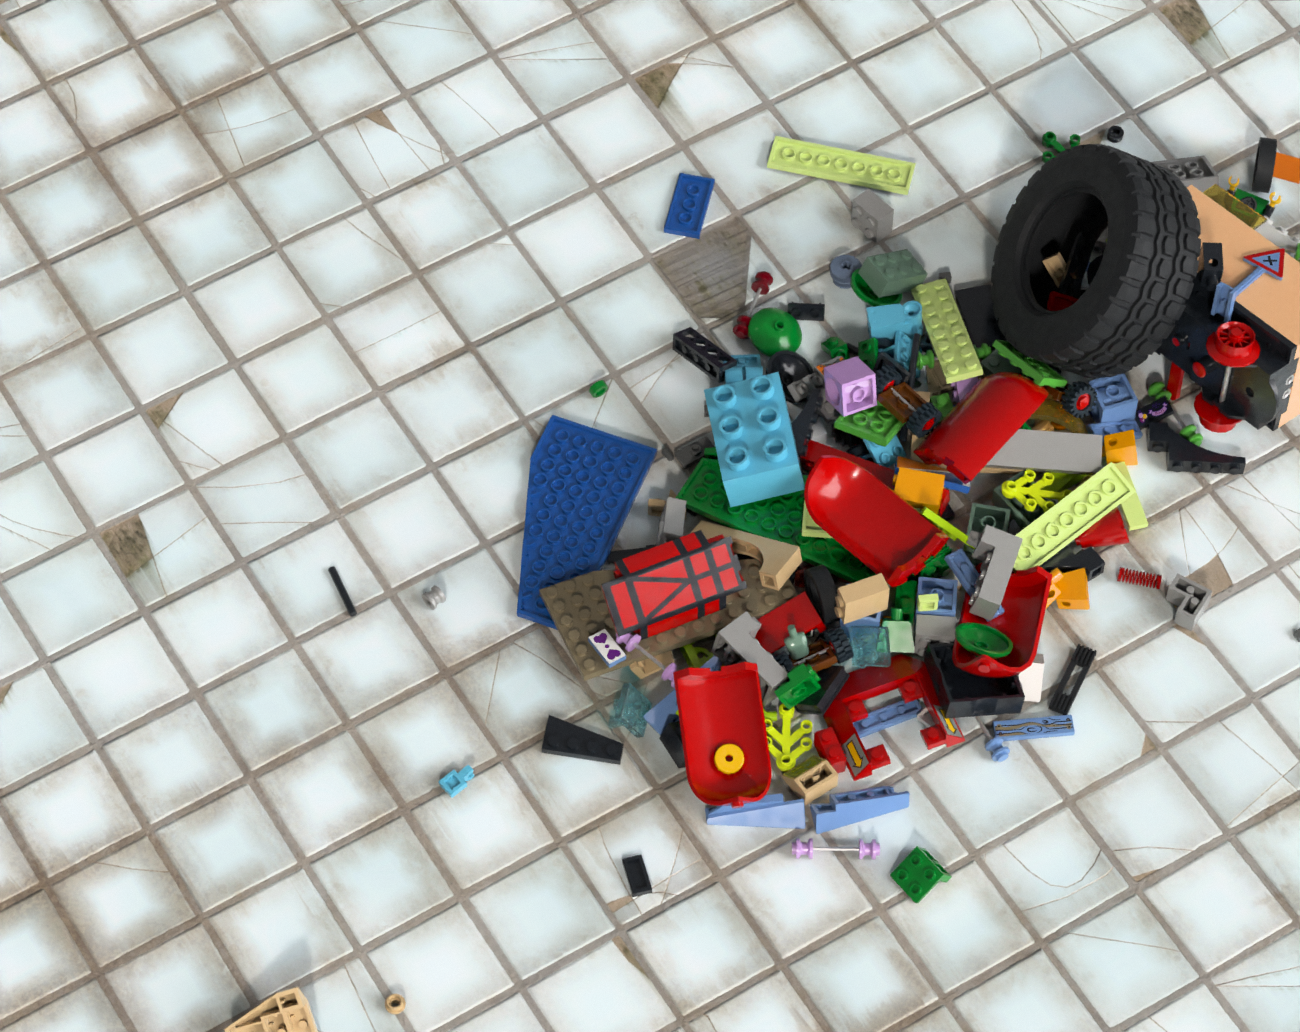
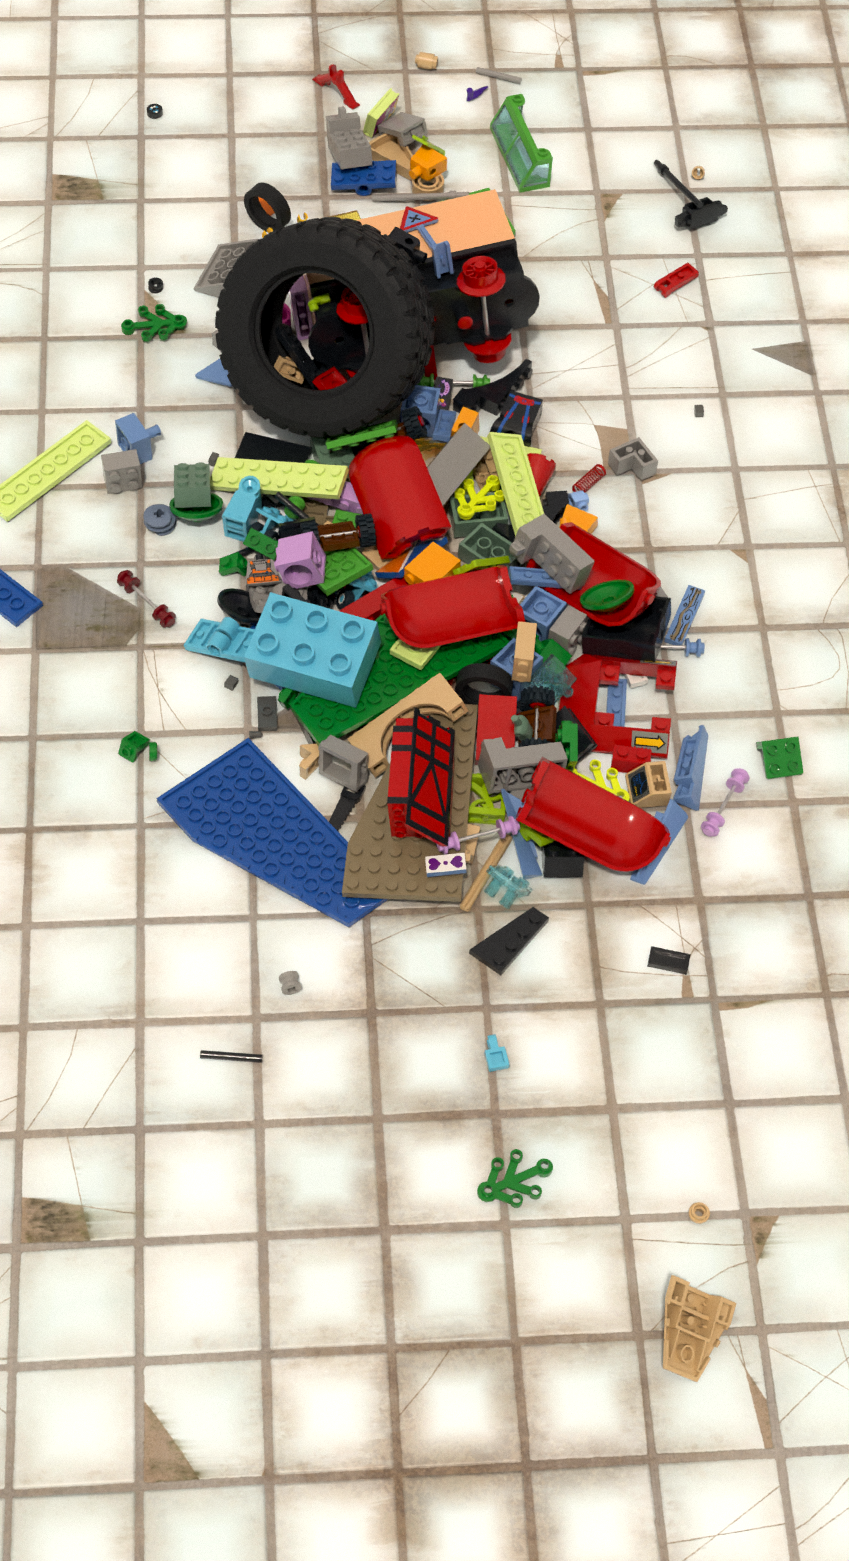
camera: 65 degrees left, 0 degrees up
(345, 847) = (513, 1181): none -> green plant
(595, 371) = (132, 745): none -> green bracket
(615, 692) = (483, 876): none -> tan axle
(699, 355) = (177, 658): black fence -> none
(731, 750) = (612, 827): yellow piece -> none
(768, 337) = (186, 597): green dish -> none
(807, 311) = (179, 566): black hinge -> none
(915, 207) = (133, 436): none -> medium blue brick
(927, 602) = (550, 613): yellowish green tile -> none
(1082, 657) = (640, 551): black container -> none
(1105, 580) = (579, 500): none -> light blue plate
(1167, 486) = (519, 416): none -> black piece

